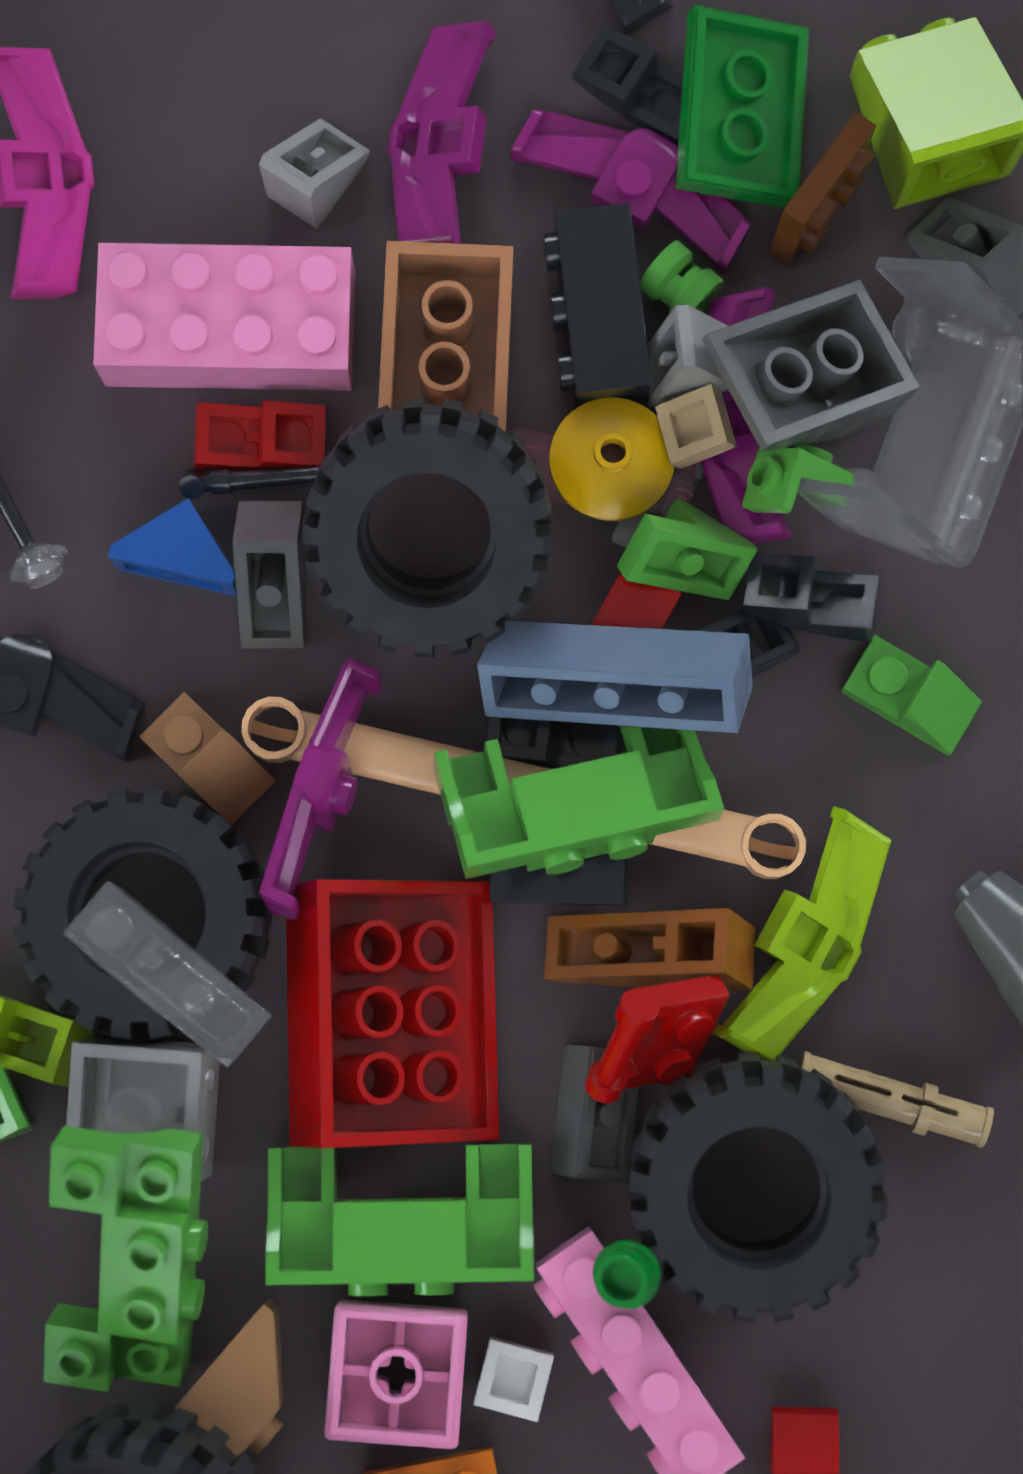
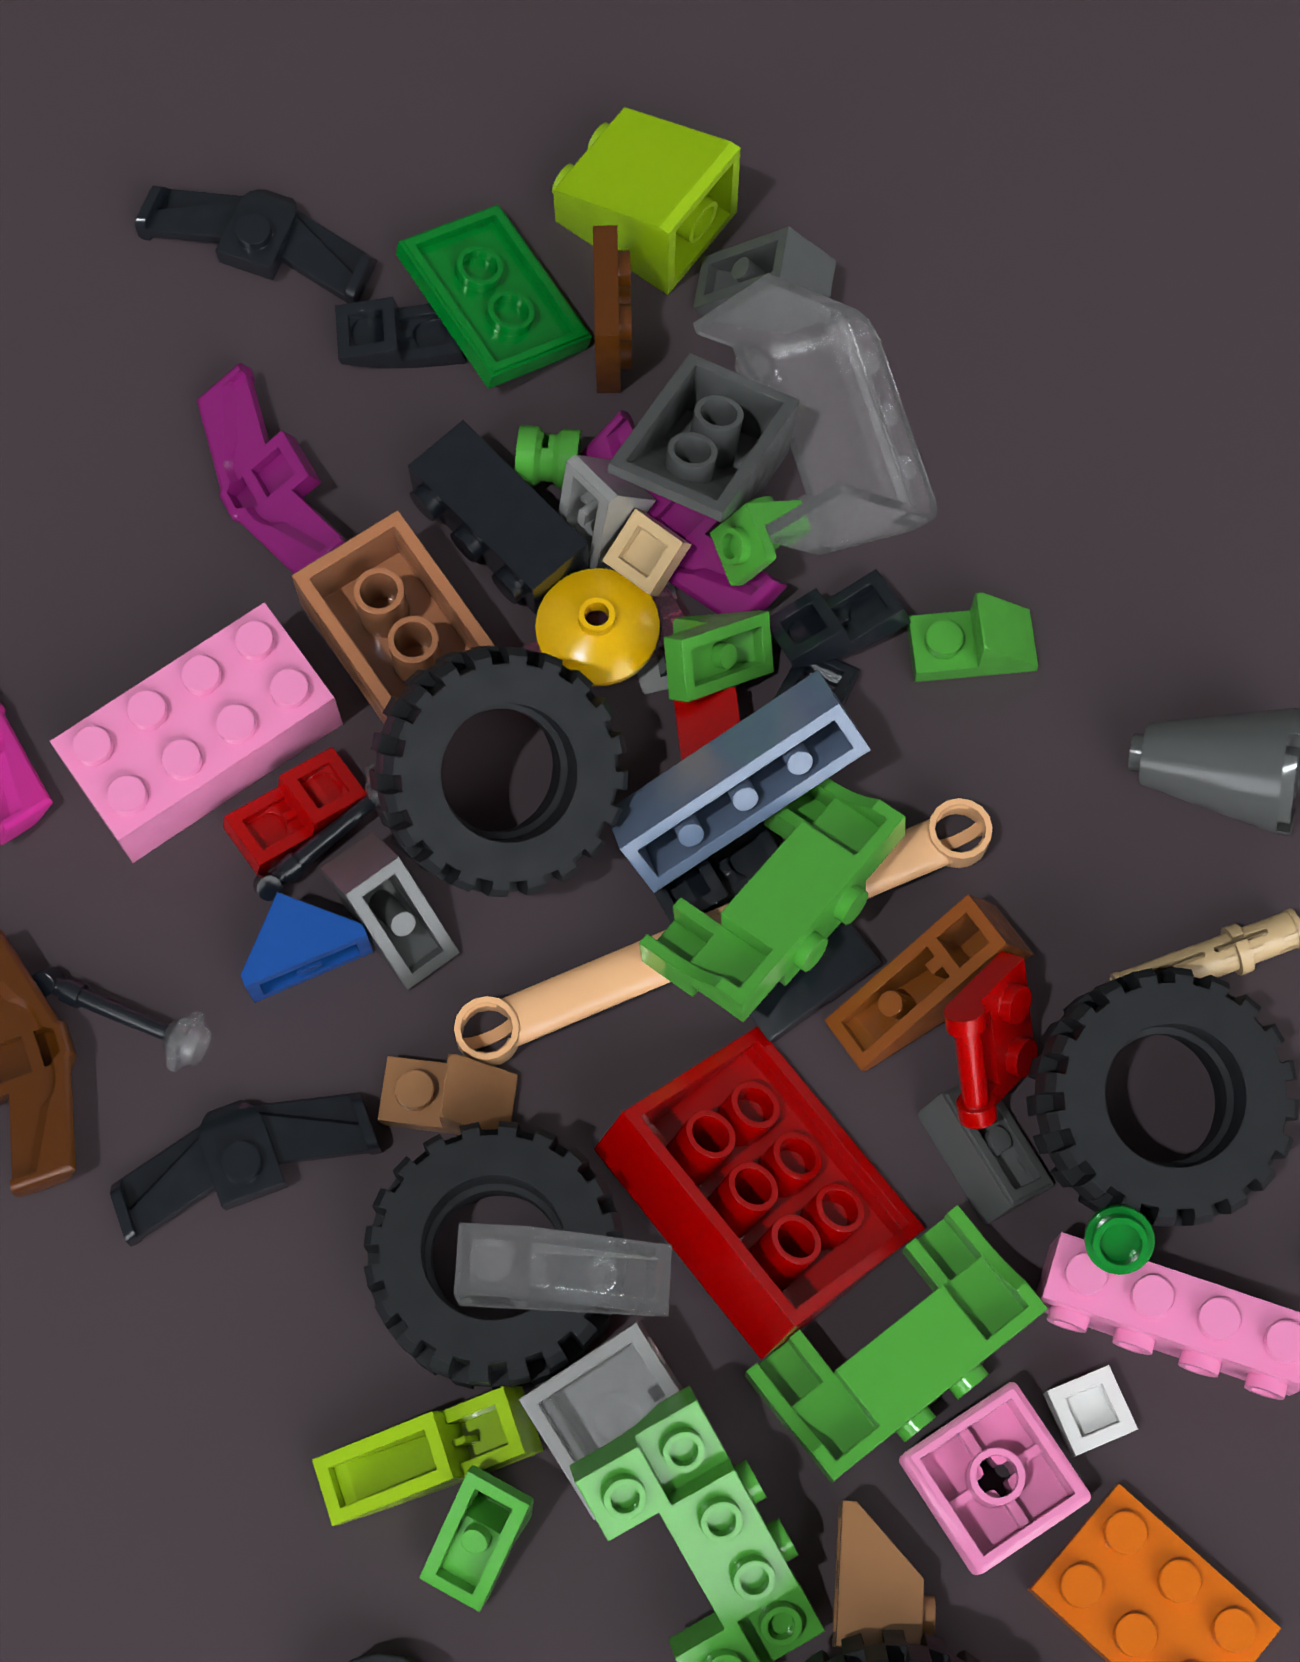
camera: 35 degrees left, 10 degrees down
(312, 170) = (182, 575): light grey slope -> none
(320, 786) = (569, 1043): magenta plate -> none
(634, 170) = (441, 399): magenta plate -> none
(811, 940) = (1046, 882): lime plate -> none

